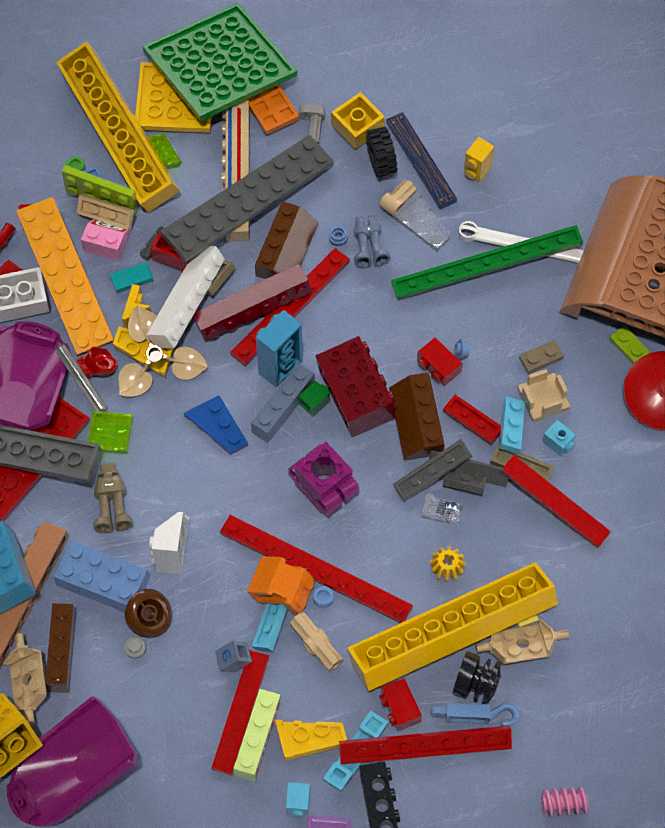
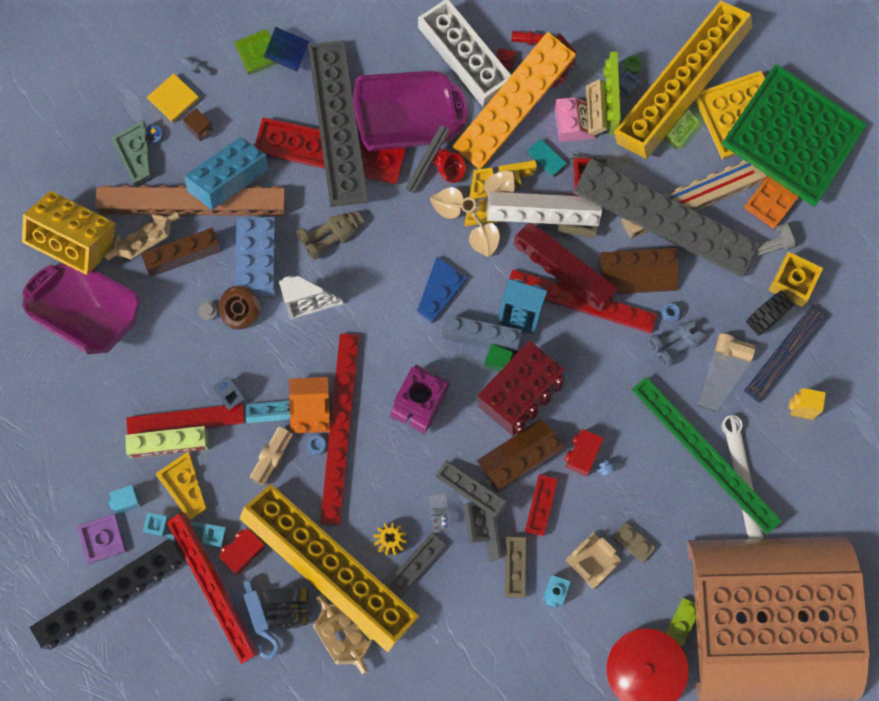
camera: 65 degrees right, 10 degrees up
(111, 431) = (391, 205): clear neon green plate -> none
(480, 550) = (416, 565): none -> dark grey tile
(512, 425) = (549, 542): medium azure plate -> none
(555, 501) = (489, 611): red tile -> none

